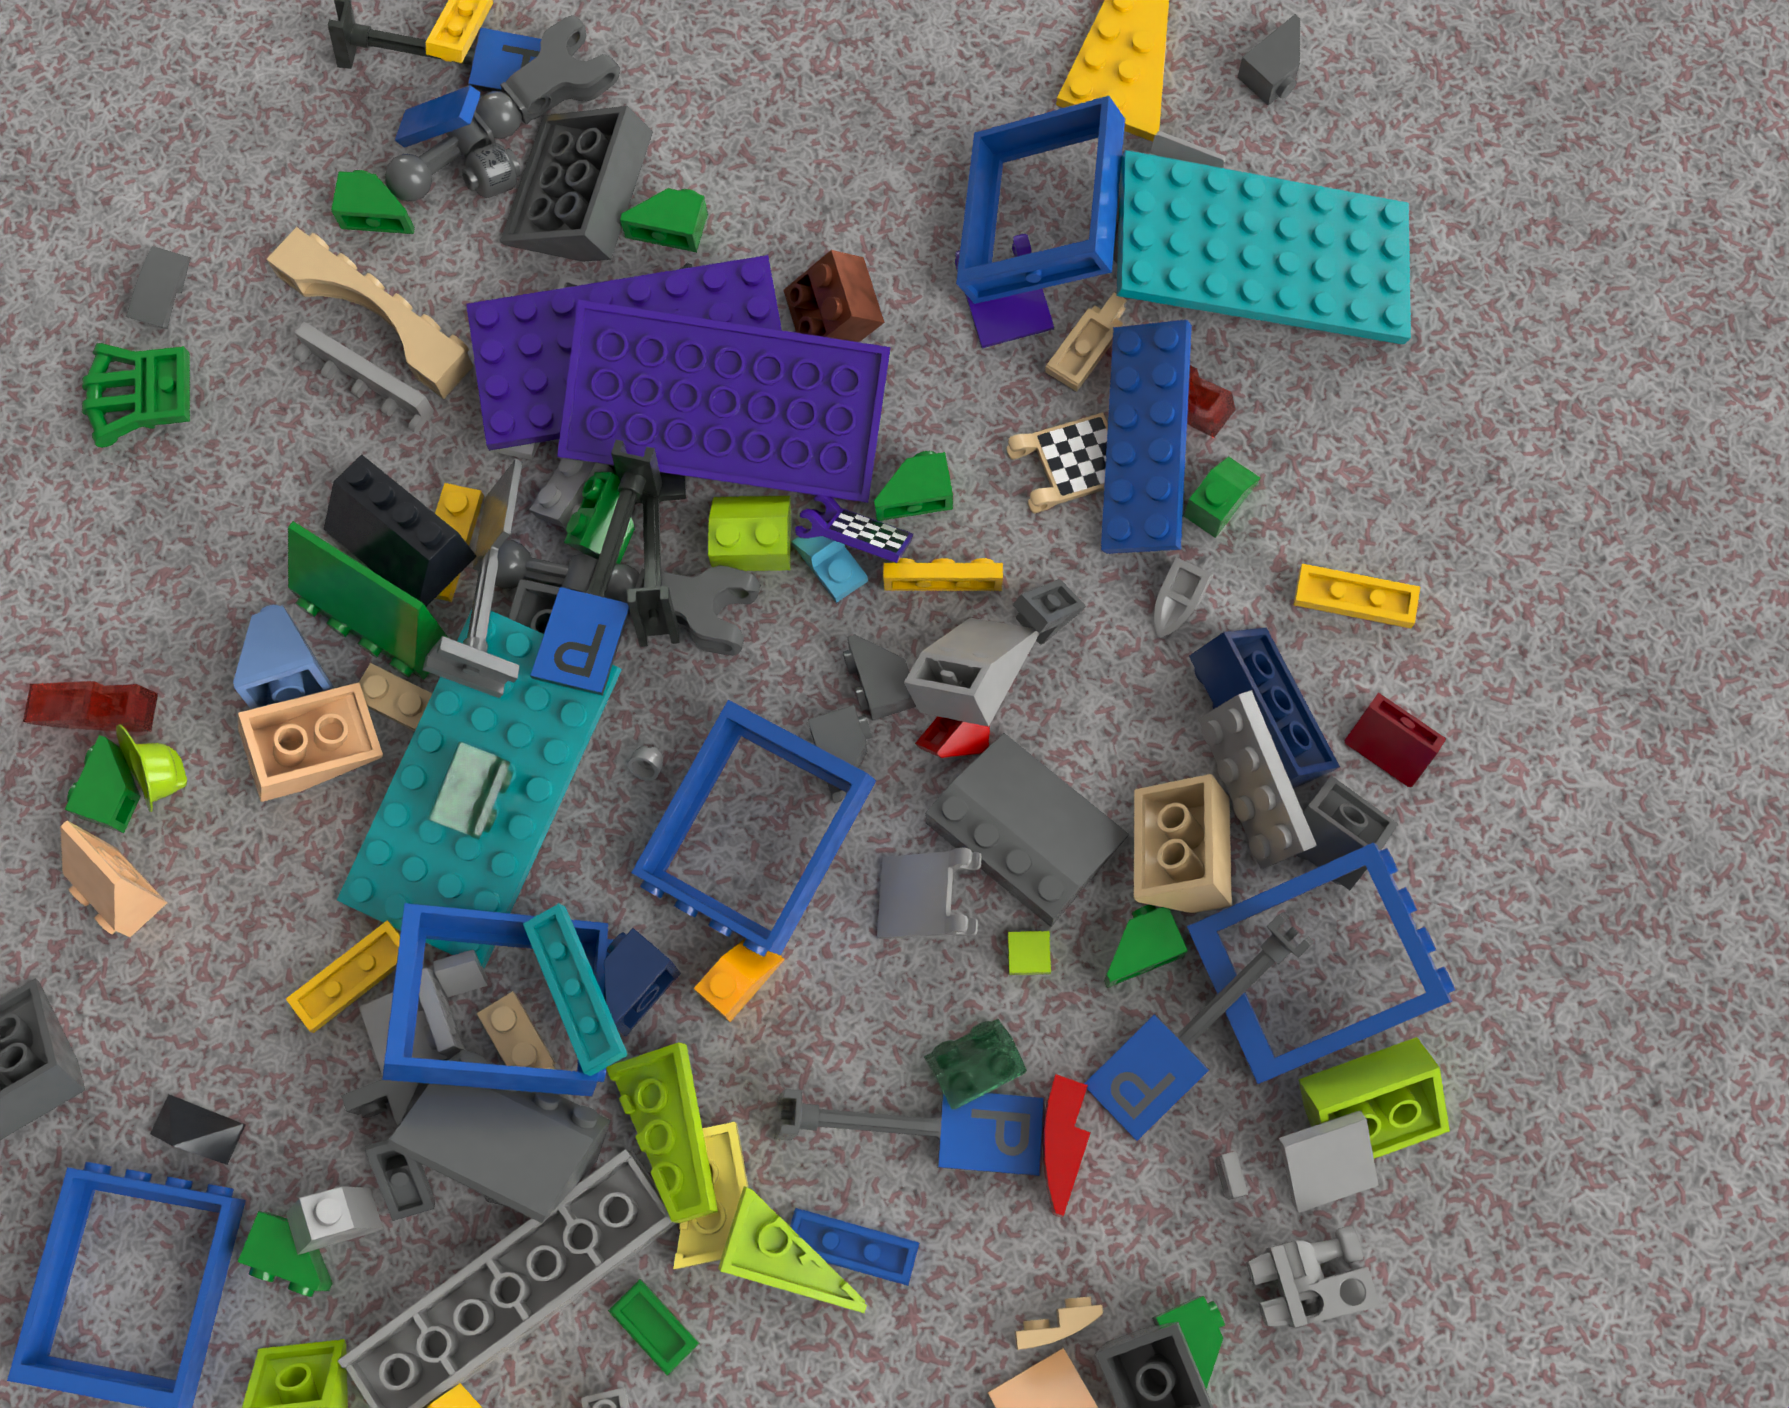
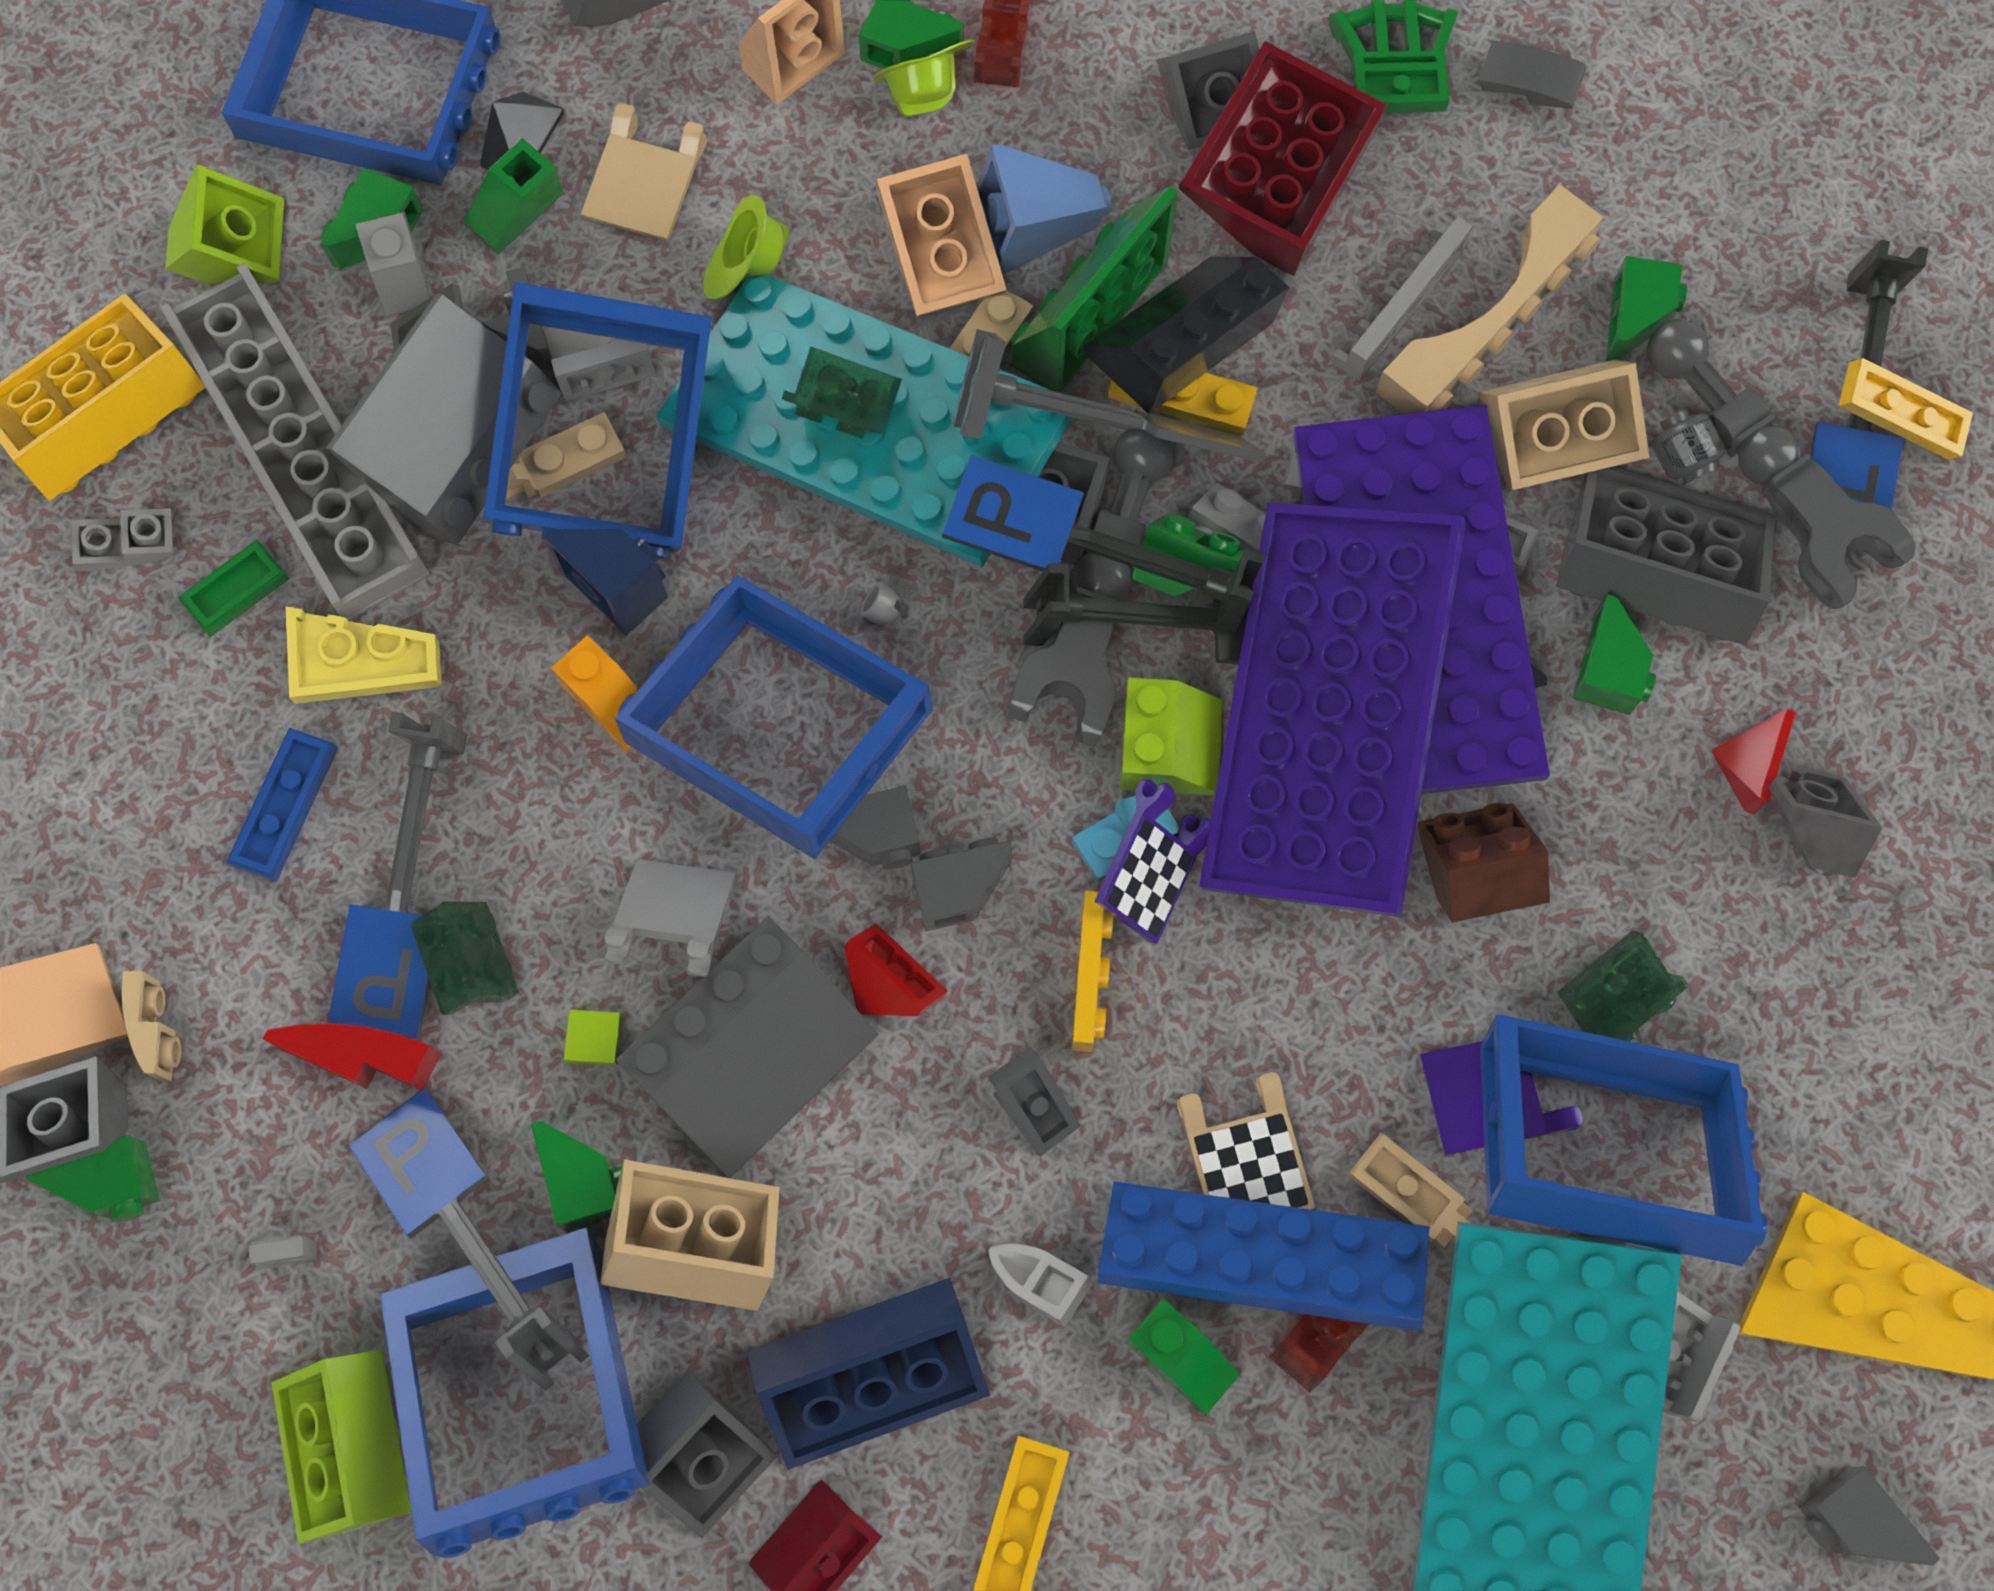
camera: 90 degrees right, 0 degrees up
(167, 526) = (1203, 81): none -> dark grey slope
(238, 464) = (1281, 155): none -> dark red slope
(245, 1014) = (641, 183): none -> tan flag
(266, 1120) = (513, 195): none -> green slope
(320, 908) = (746, 250): none -> lime piece
(347, 978) = (657, 270): yellow plate -> none
(438, 116) = (1759, 378): blue tile -> none
(460, 973) = (650, 393): light grey tile -> none
(472, 251) = (1567, 423): none -> tan slope
(575, 990) = (590, 495): teal plate -> none
(665, 1112) = (459, 604): lime wing -> none
(741, 125) = (1754, 759): none -> red slope
(773, 1254) = (276, 712): lime wing -> none
(787, 77) = (1826, 820): none -> flat silver slope
(916, 488) = (1215, 949): green slope -> none
(925, 210) = (1622, 989): none -> clear green bracket
(969, 670) = (953, 989): light grey slope -> none
(1256, 780) = (760, 1340): light grey plate -> none
(1302, 1288) = (129, 1325): light grey hips -> none
(1329, 1161) = (275, 1373): light grey tile -> none

